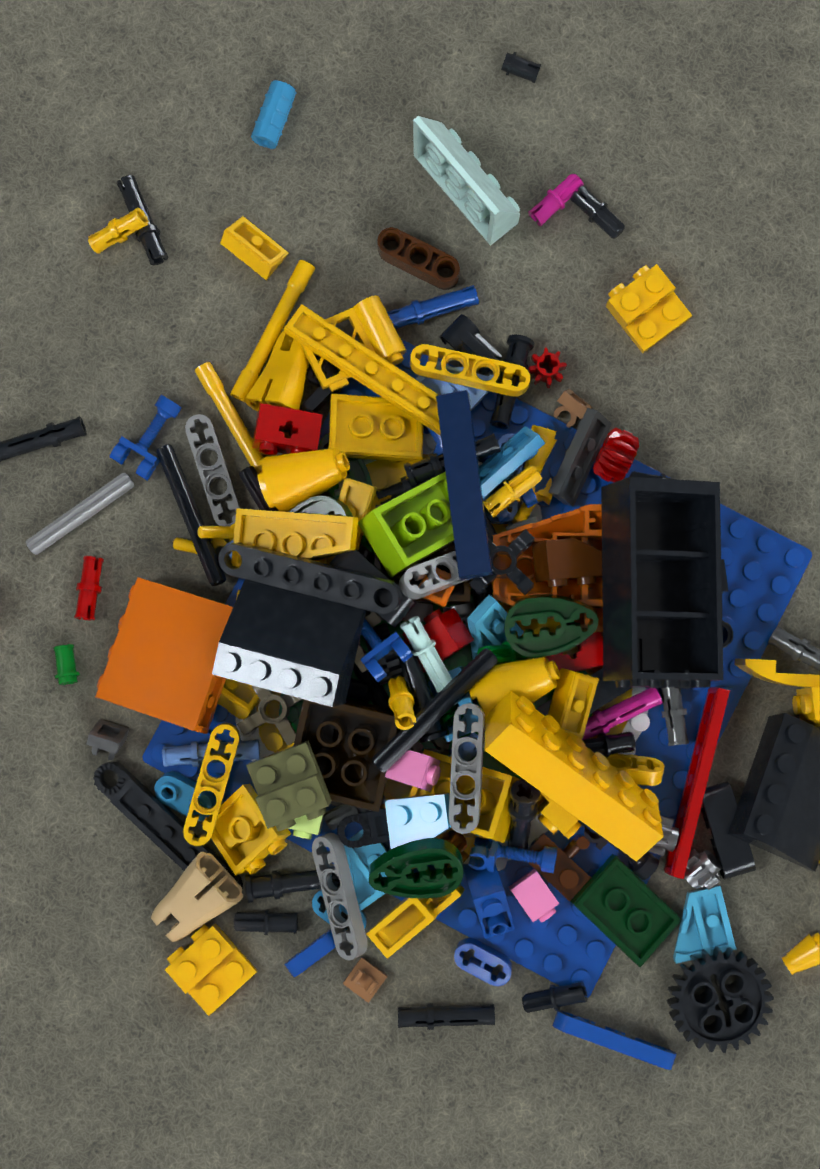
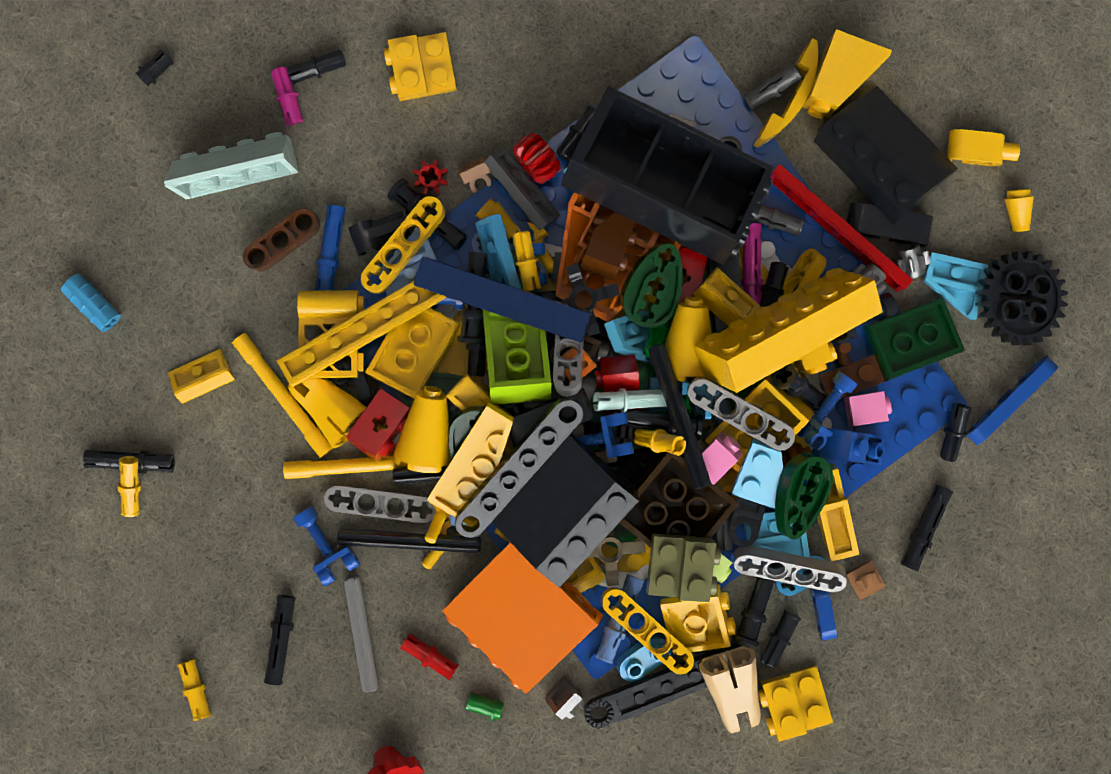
camera: 70 degrees left, 5 degrees up
(488, 957) = (898, 476): blue beam -> none

